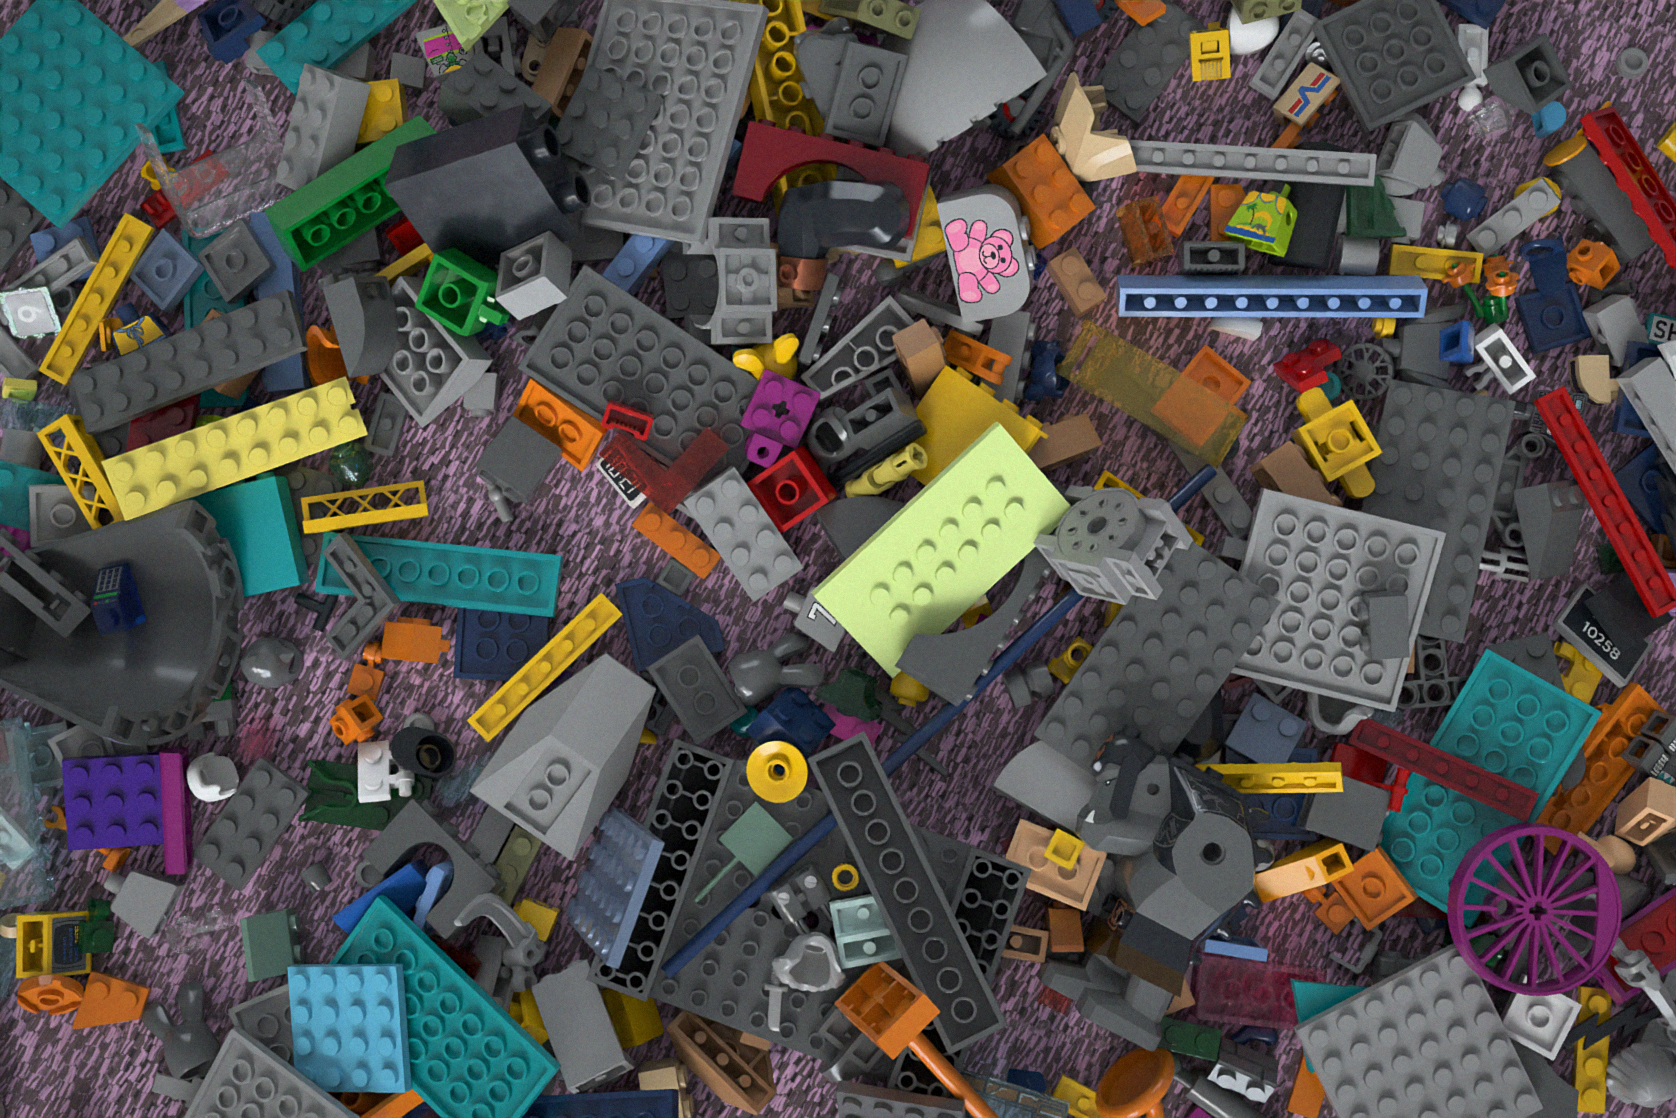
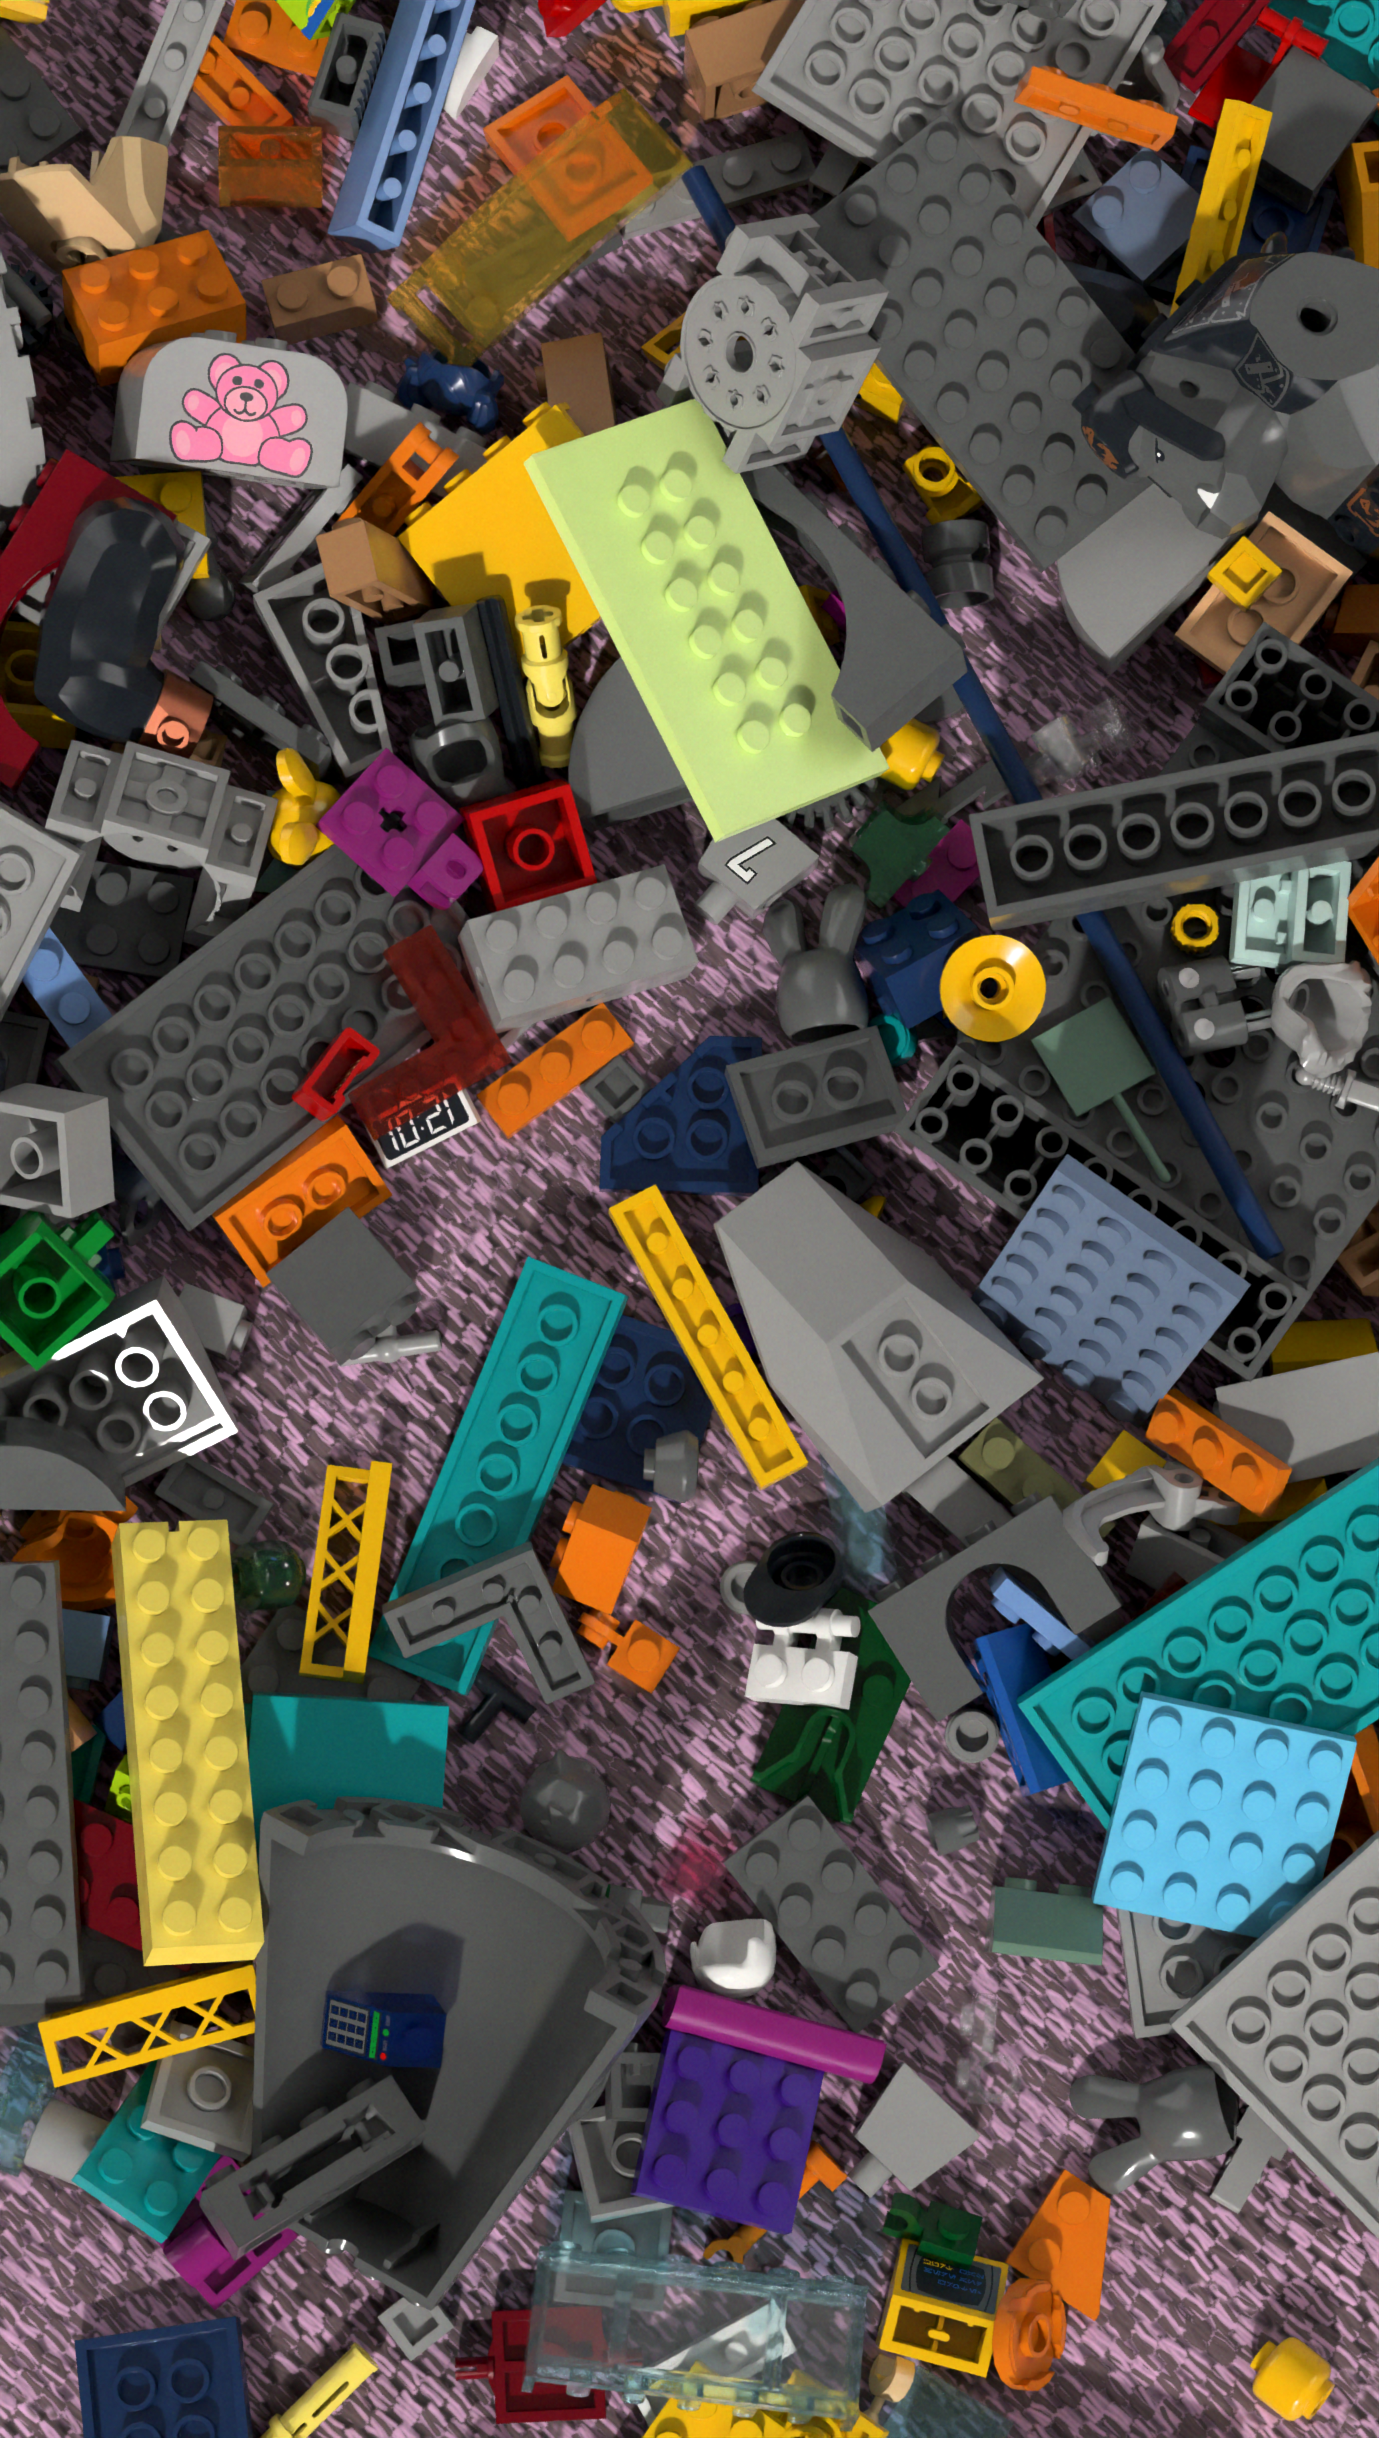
camera: 80 degrees left, 5 degrees down
(355, 719) = (709, 1694): orange brick -> none
(467, 668) = (673, 1465): none -> dark grey cone
(549, 971) = (1218, 1453): none -> orange plate
(926, 775) = (1072, 756): none -> clear plate
(1315, 688) = (1096, 107): none -> orange plate

